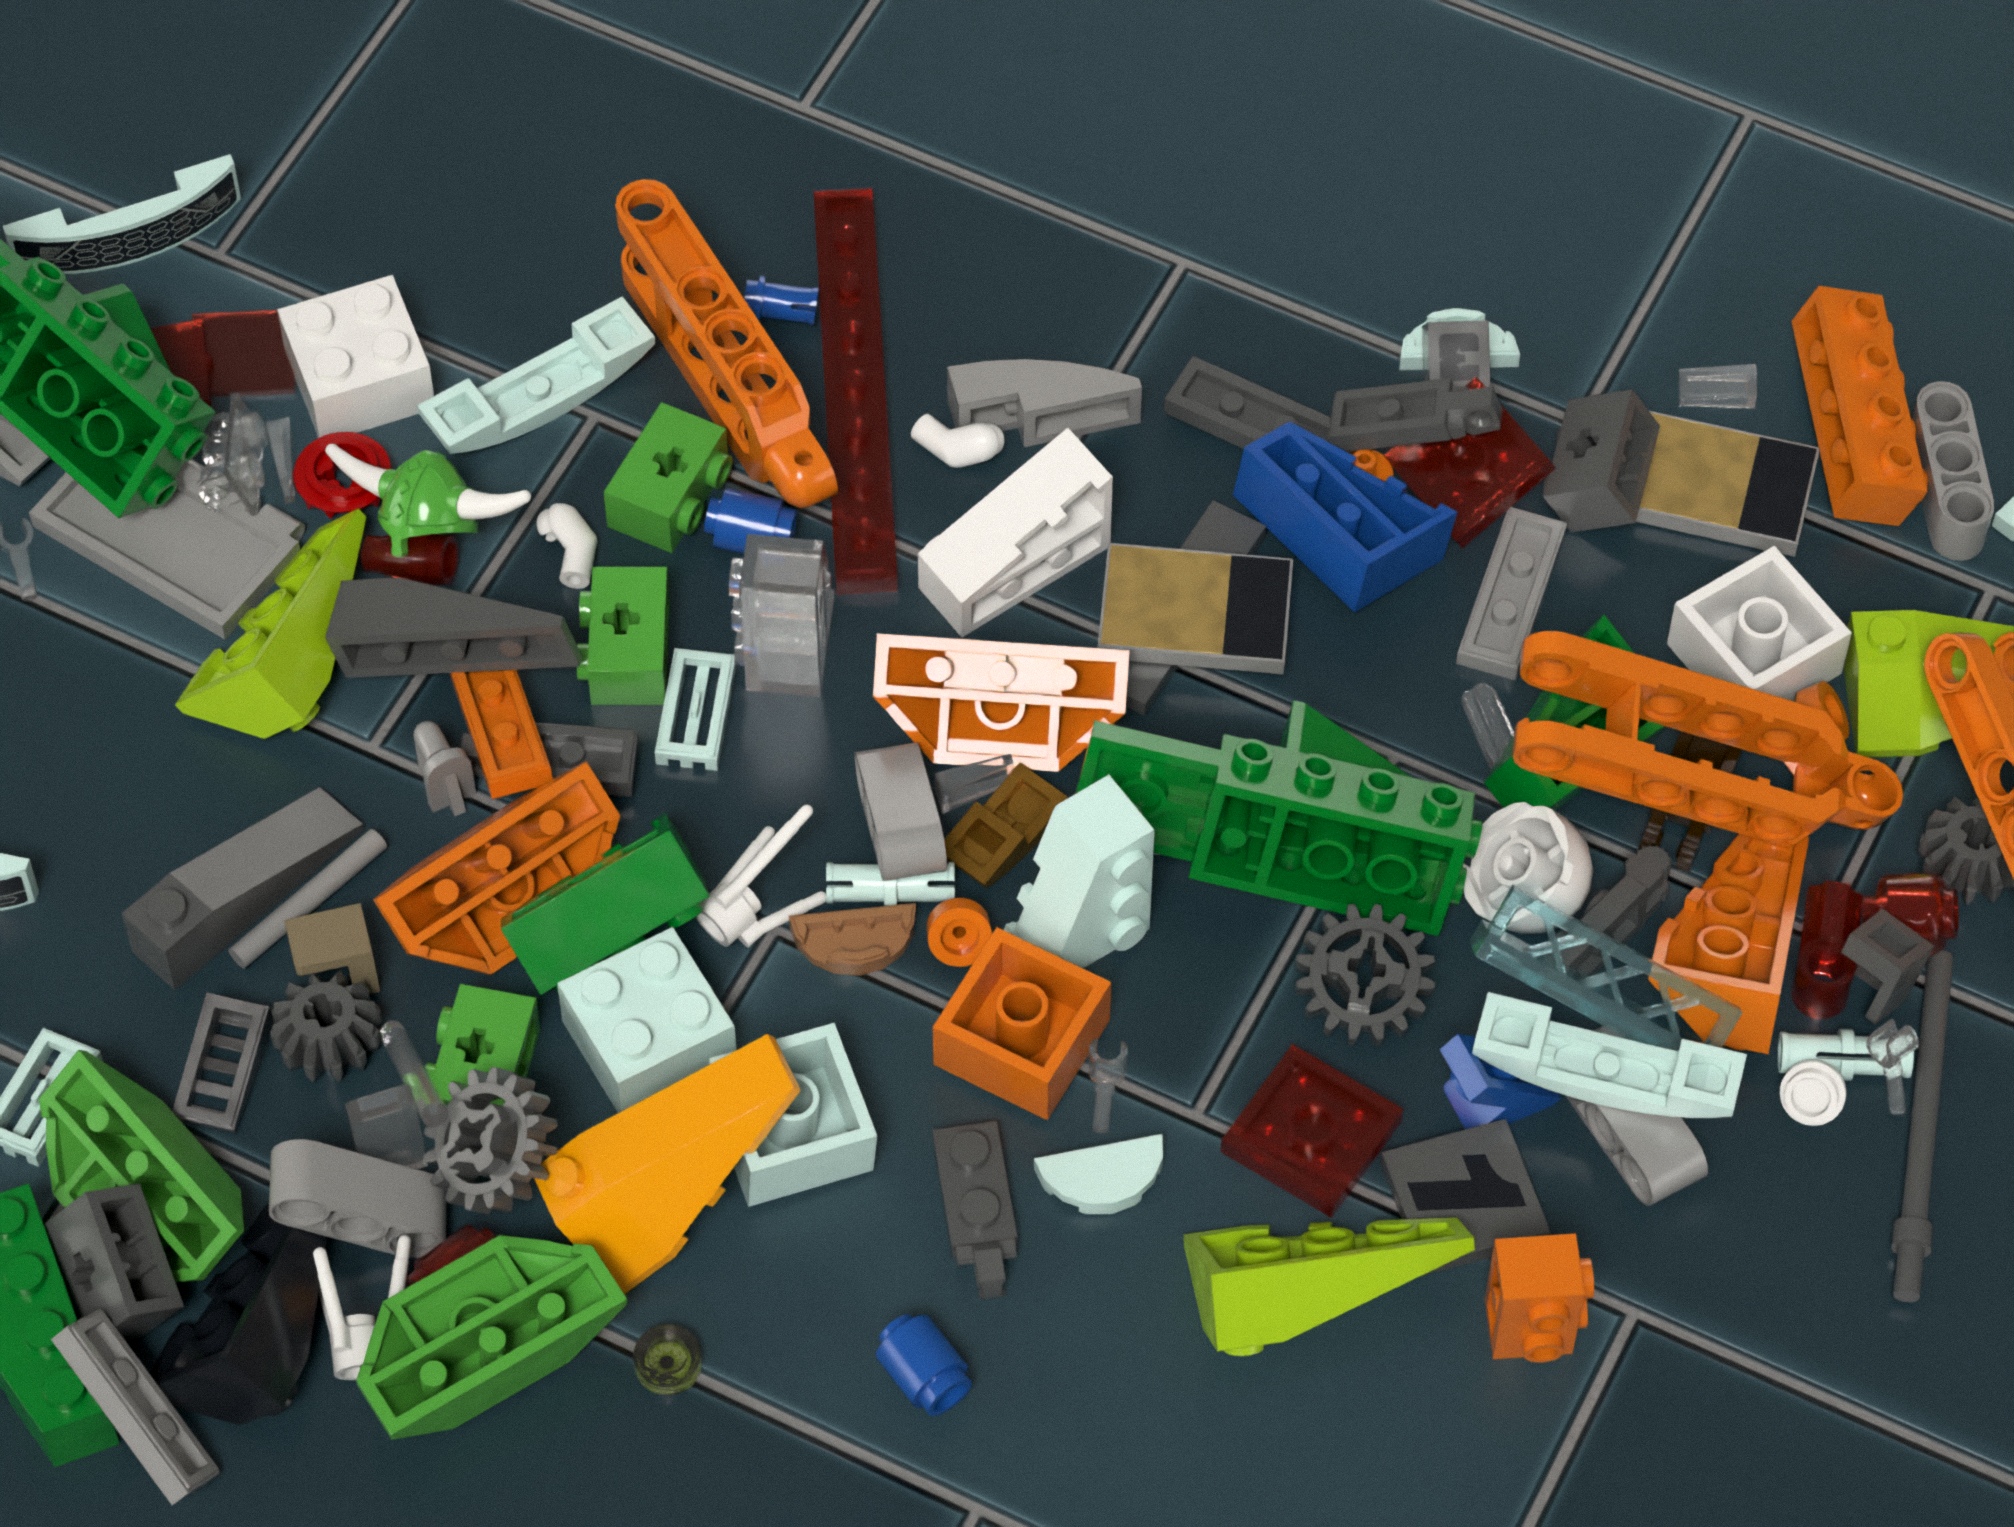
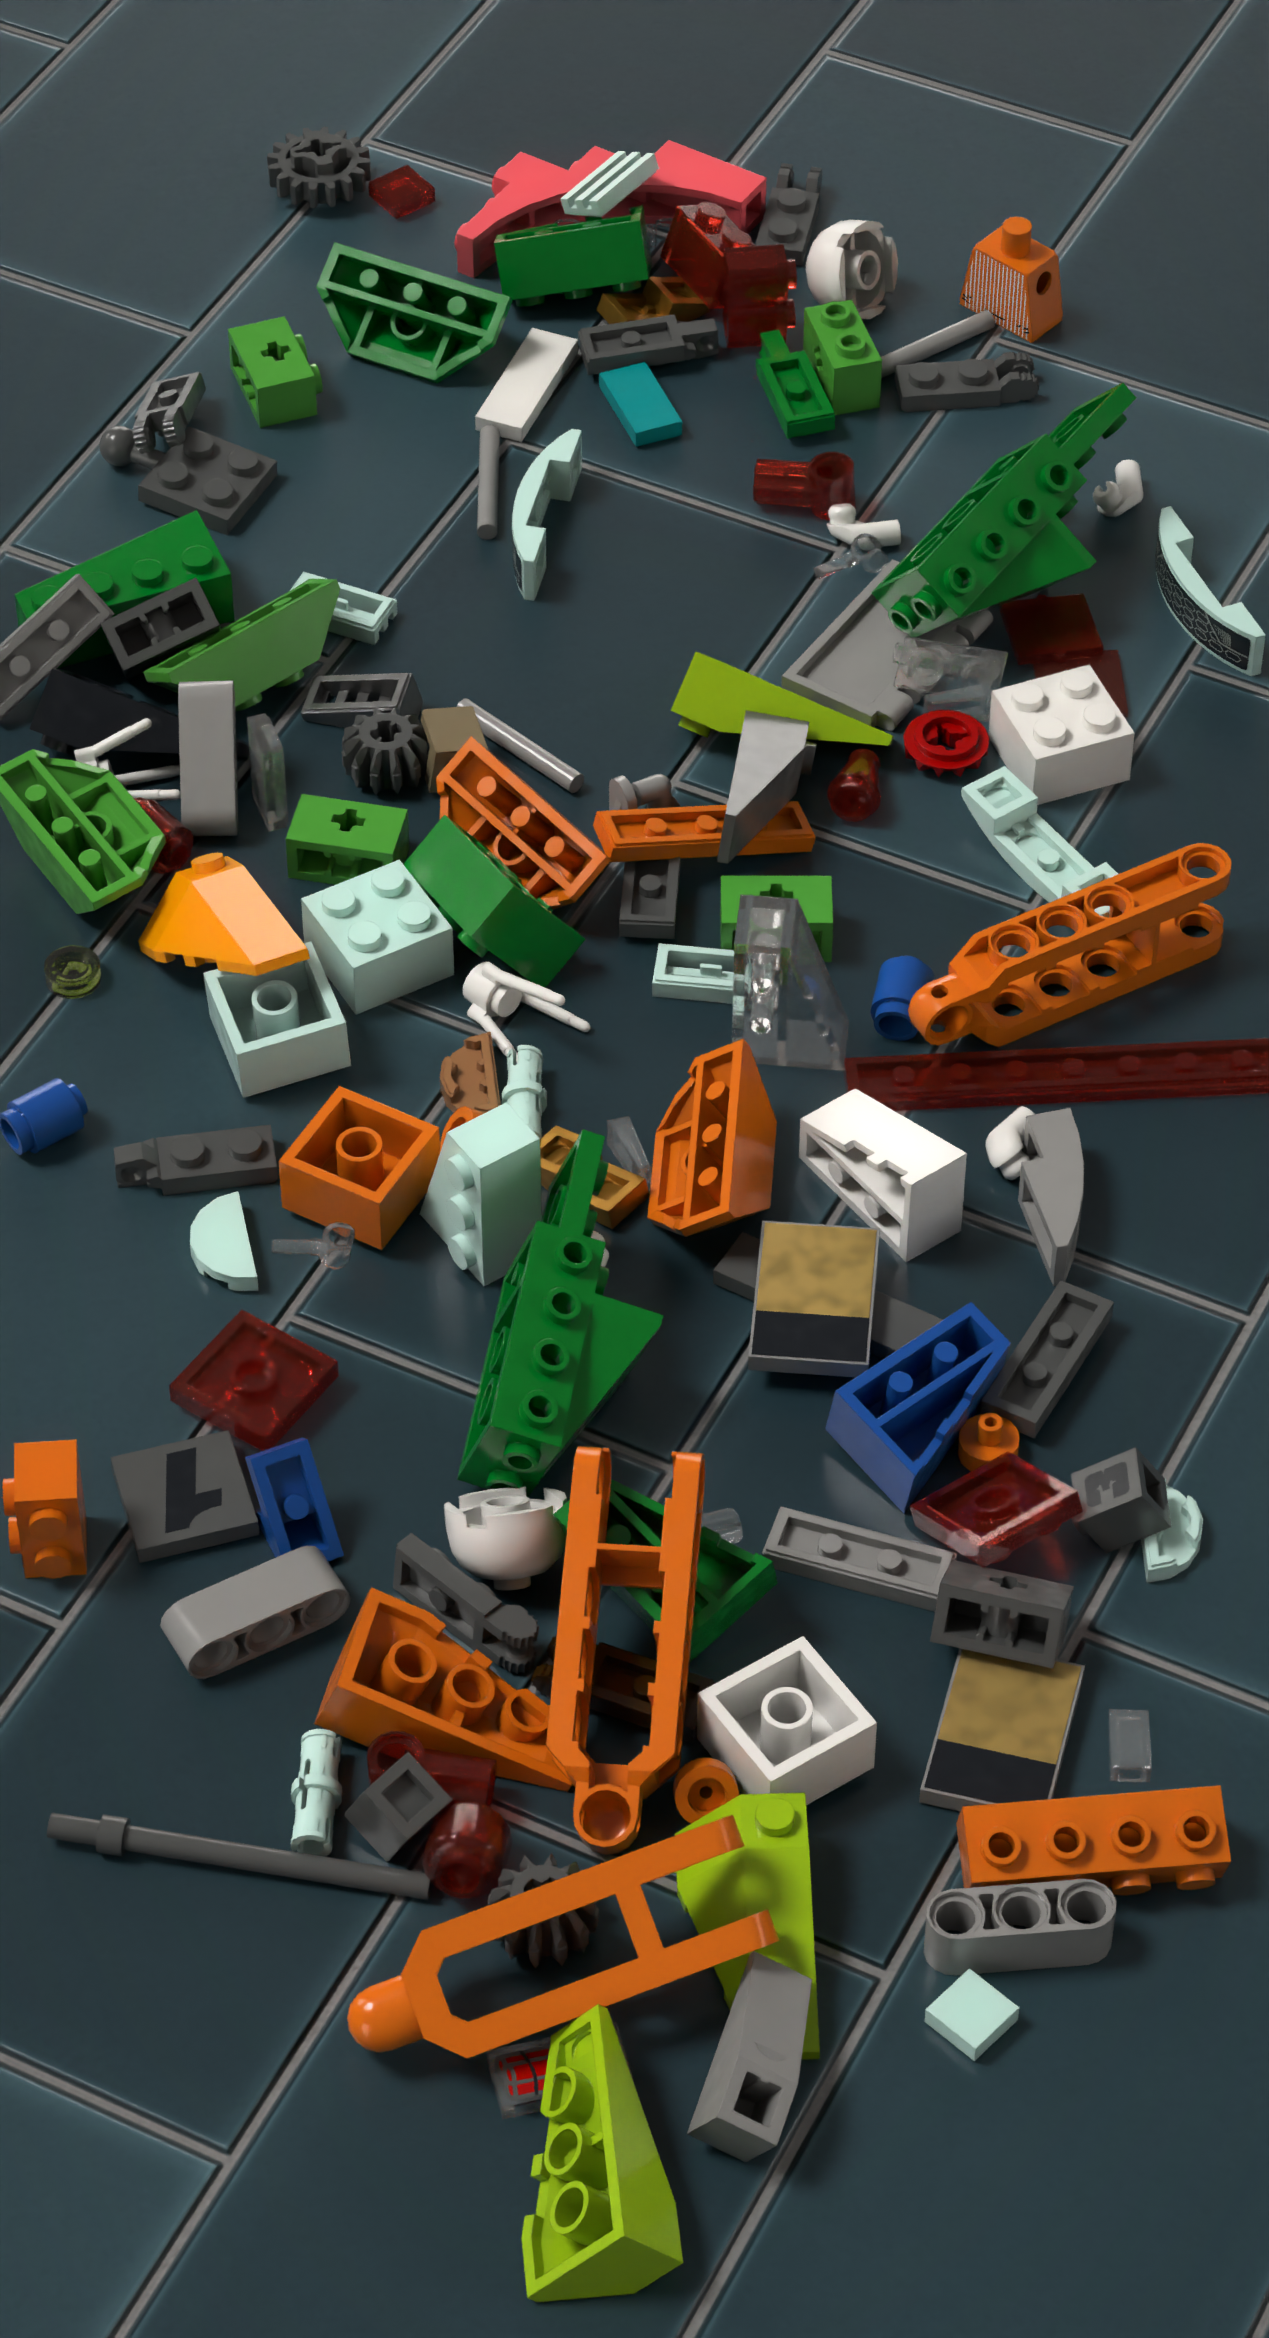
camera: 90 degrees right, 10 degrees down
(233, 885) = (516, 687): dark grey slope -> none
(414, 1073) = (320, 784): clear bar -> none
(424, 496) = (898, 770): bright green helmet -> none
(491, 1141) = (245, 818): dark grey gear -> none
(568, 527) = (885, 889): white arm -> none
(667, 478) = (936, 926): bright green brick -> none
(778, 301) = (1159, 1005): blue pin -> none
(900, 811) = (579, 1083): light grey beam -> none
(1273, 1288) = (104, 1357): lime wedge -> none
(1388, 981) = (407, 1412): dark grey gear -> none
(1411, 414) = (1029, 1441): dark grey hinge -> none
(1589, 993) = (357, 1552): clear light blue fence -> none
(1607, 1068) = (283, 1554): light aqua slope -> none
(1813, 1092) = (270, 1758): white plate -> none
(1888, 1049) = (303, 1806): clear hand -> none

